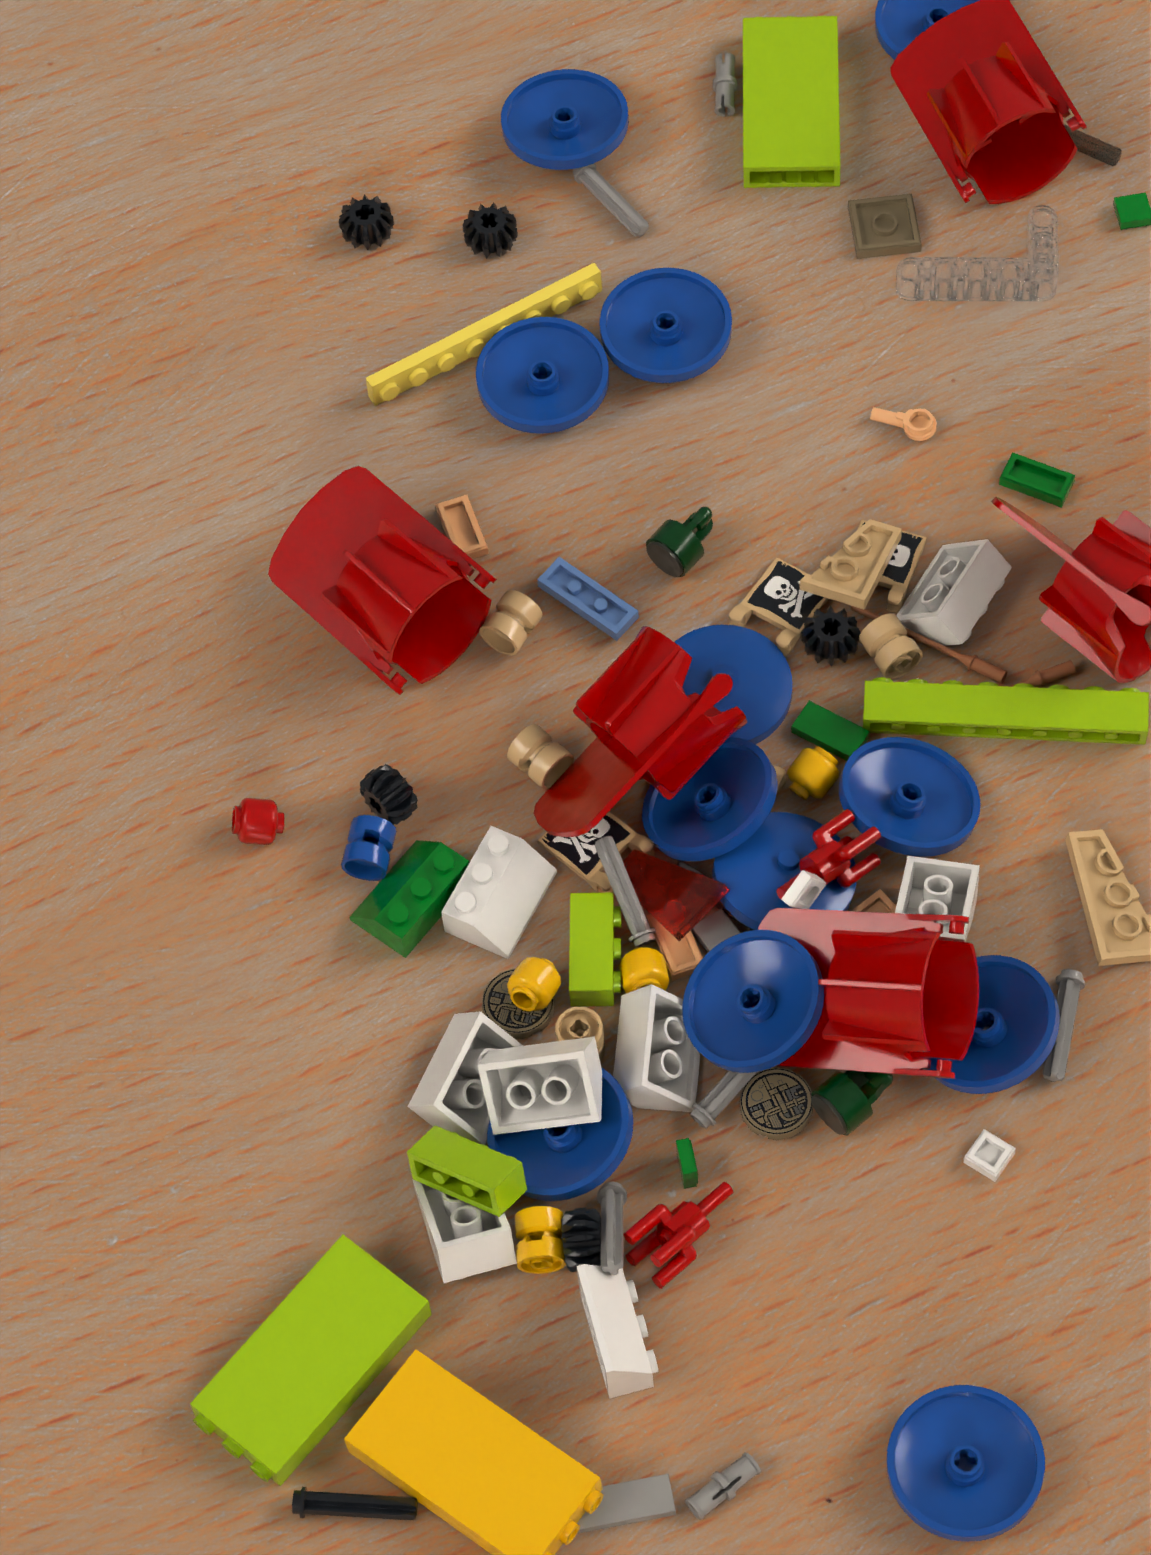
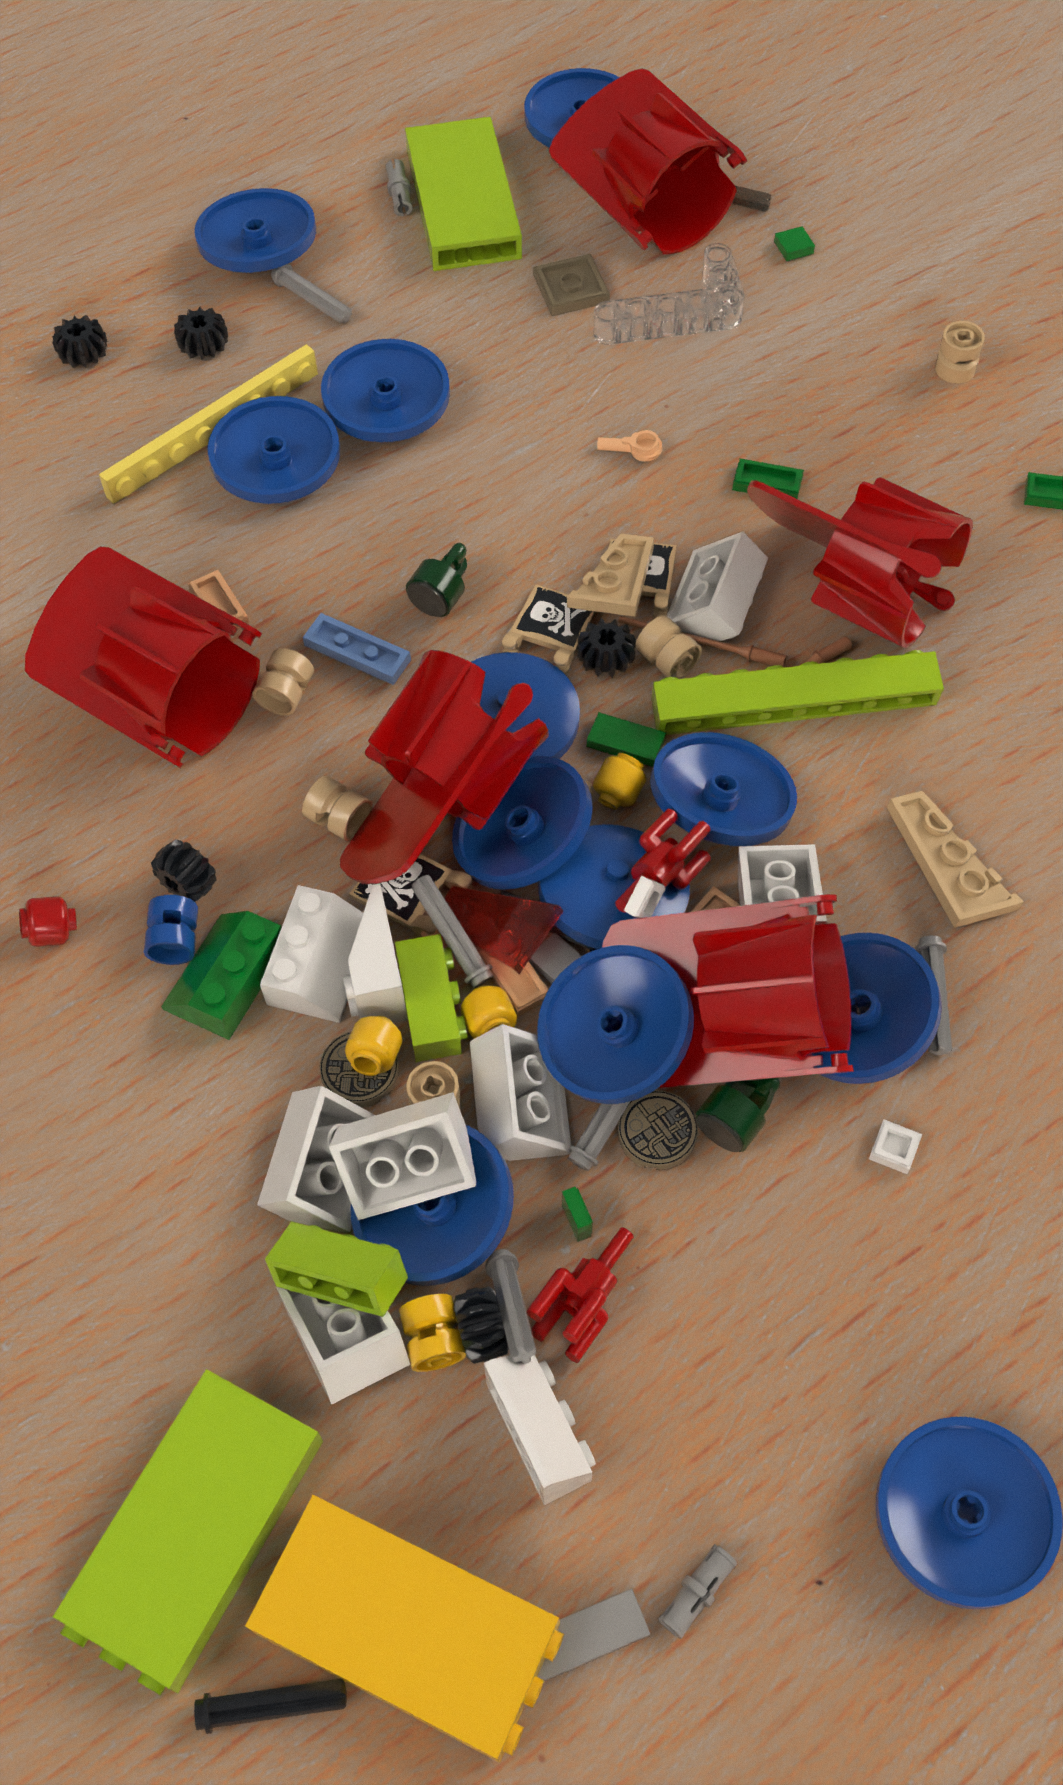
camera: 15 degrees left, 0 degrees up
(546, 912) = (374, 976): none -> white slope

